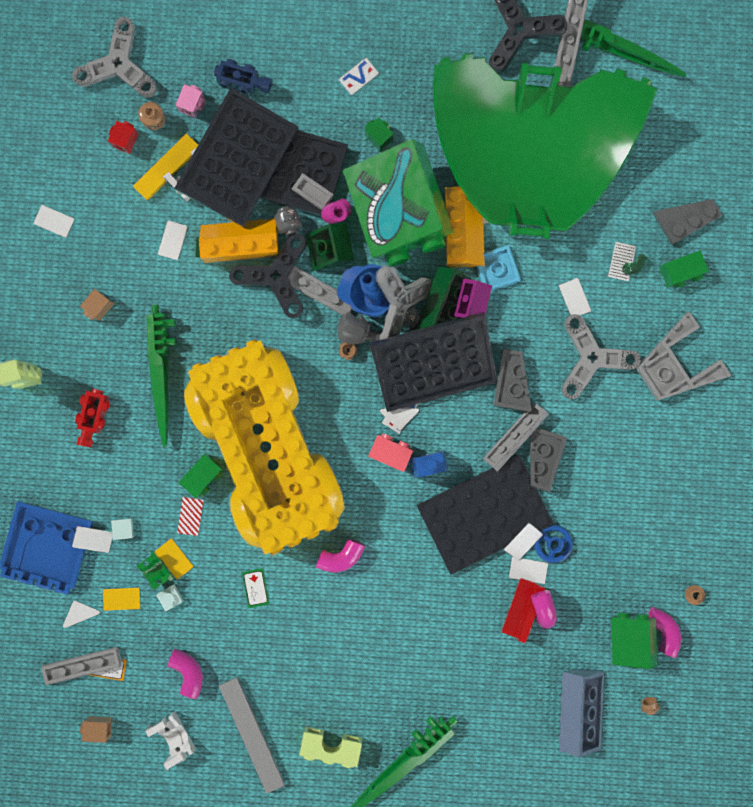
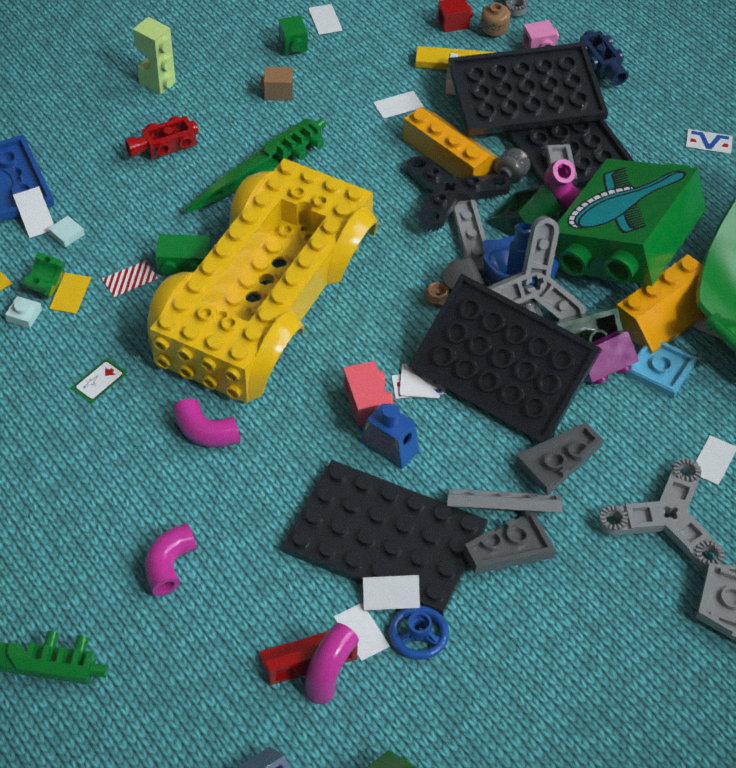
camera: 50 degrees right, 35 degrees down
(60, 261) = (293, 34): none -> green brick
(409, 643) = (162, 555): none -> dark pink cylinder

